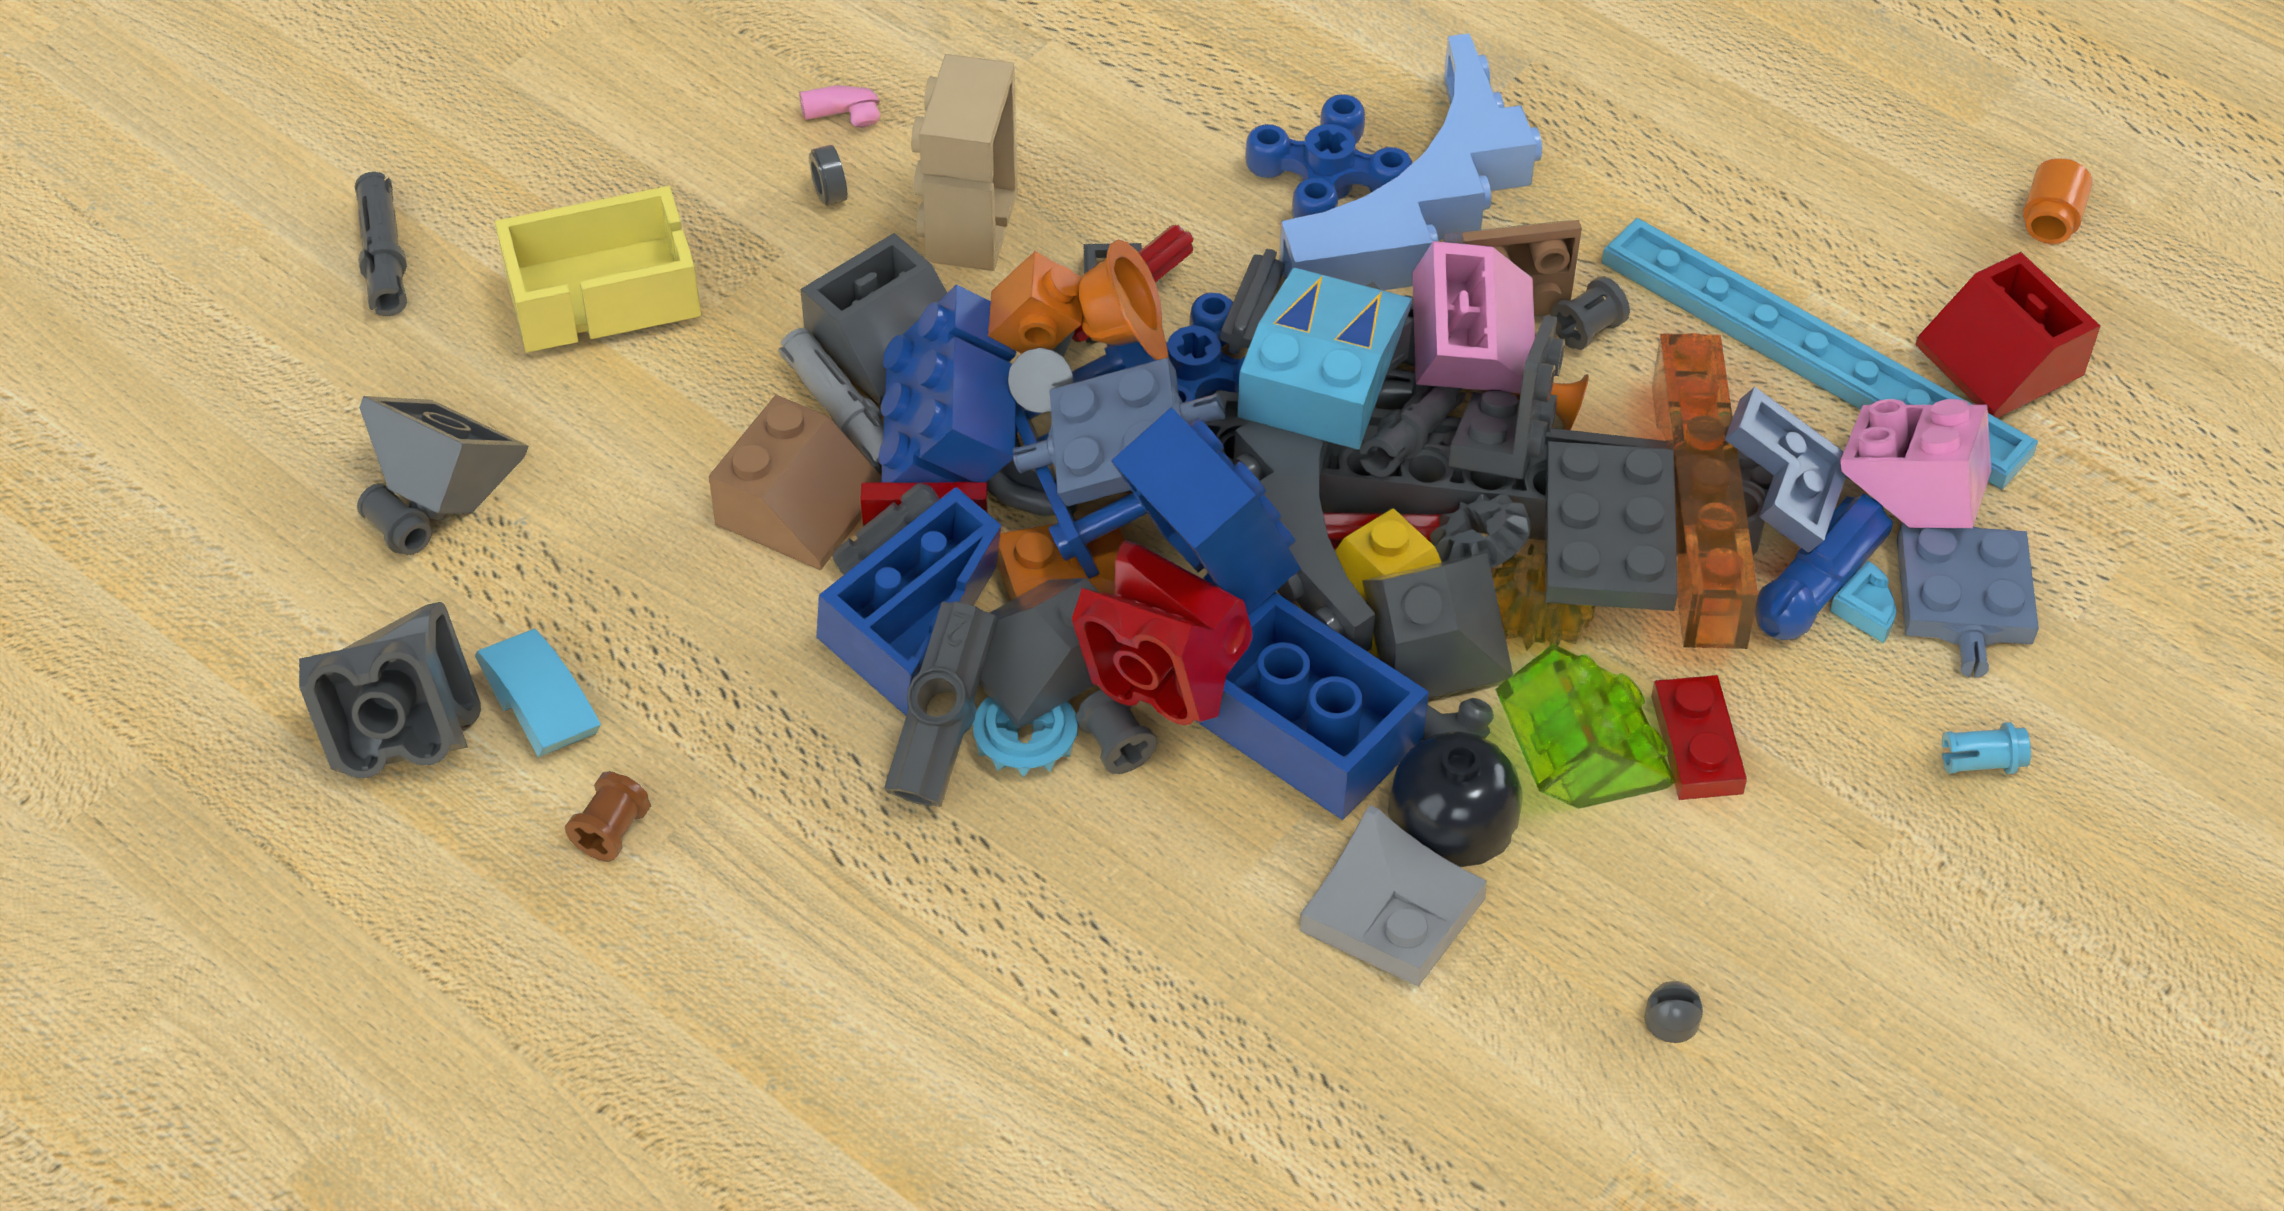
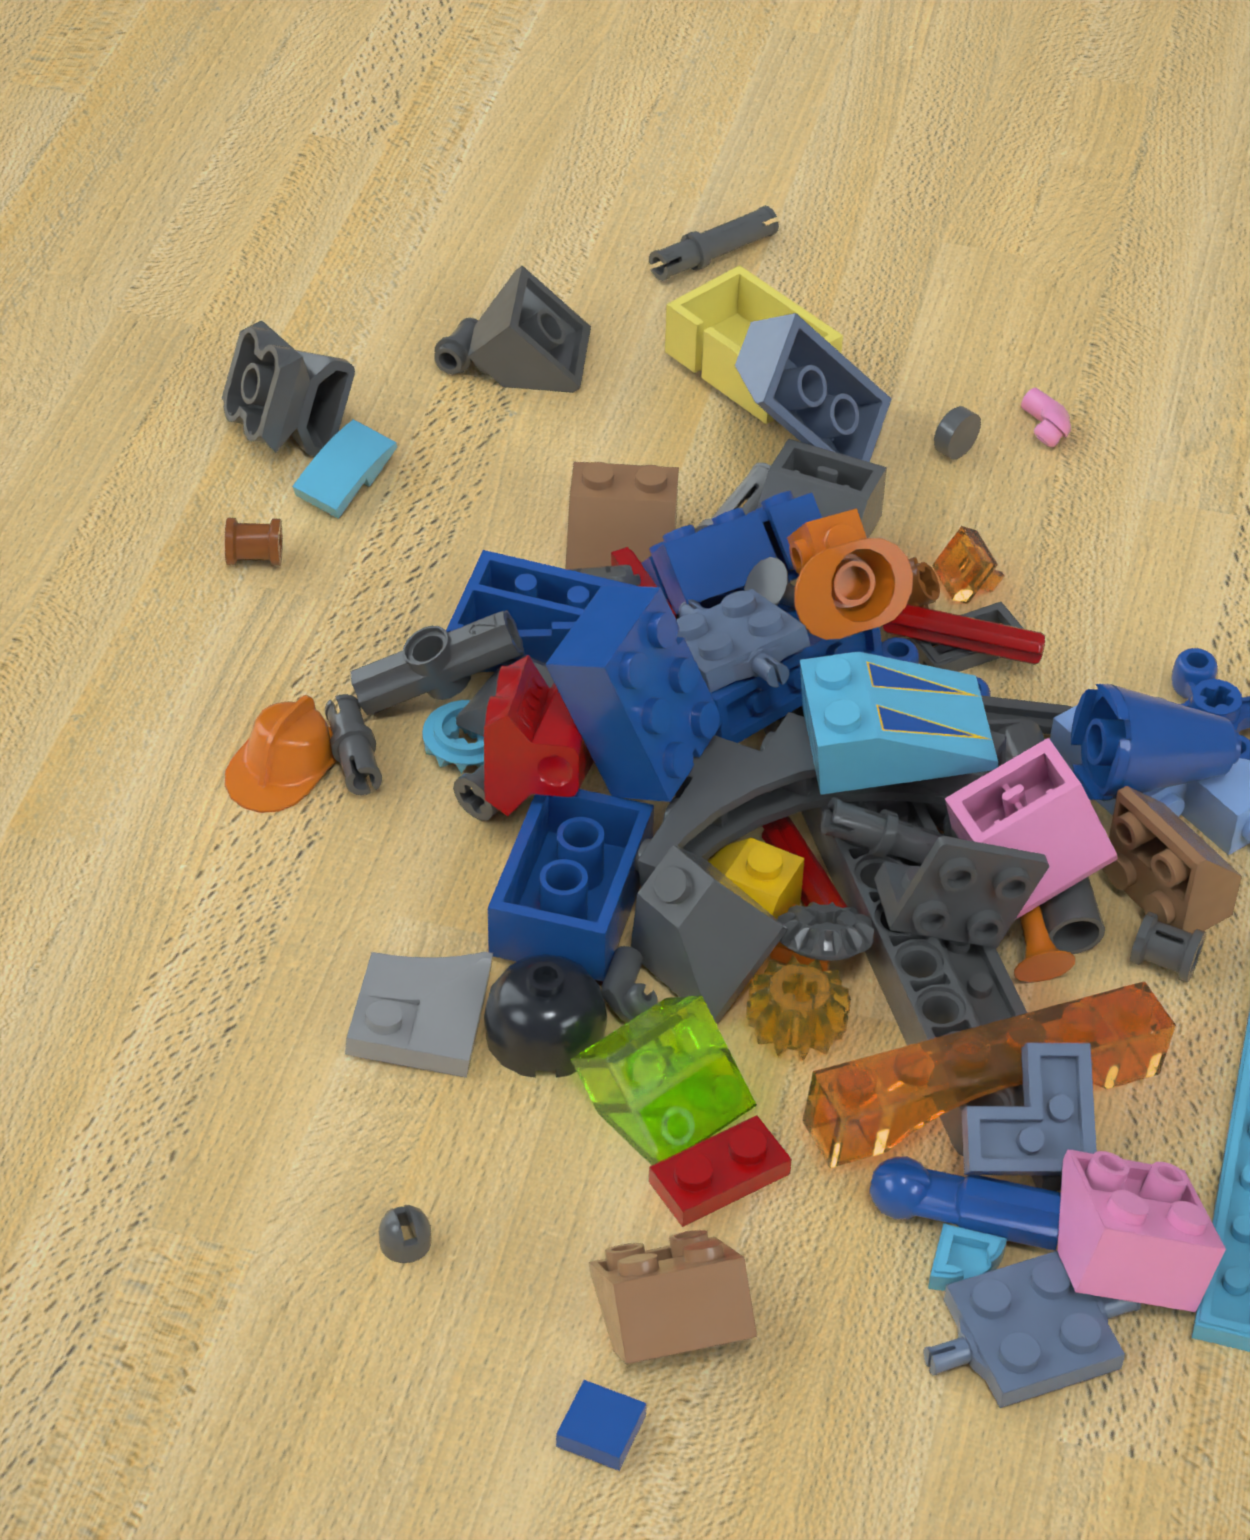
camera: 65 degrees right, 5 degrees down
(746, 238) = (811, 387): none -> sand blue slope
(962, 906) = (281, 757): none -> orange piece
(966, 161) = (996, 467): tan piece -> none
(987, 830) = (353, 744): none -> dark grey pin
(1019, 237) = (967, 566): none -> clear orange tile
(1399, 208) = (1147, 742): none -> blue cone
(1610, 526) = (878, 1001): dark grey plate -> none
(1848, 819) = (673, 1296): none -> medium nougat slope
(1958, 933) = (601, 1425): none -> blue tile
(1987, 749) = (837, 1403): medium azure pin -> none

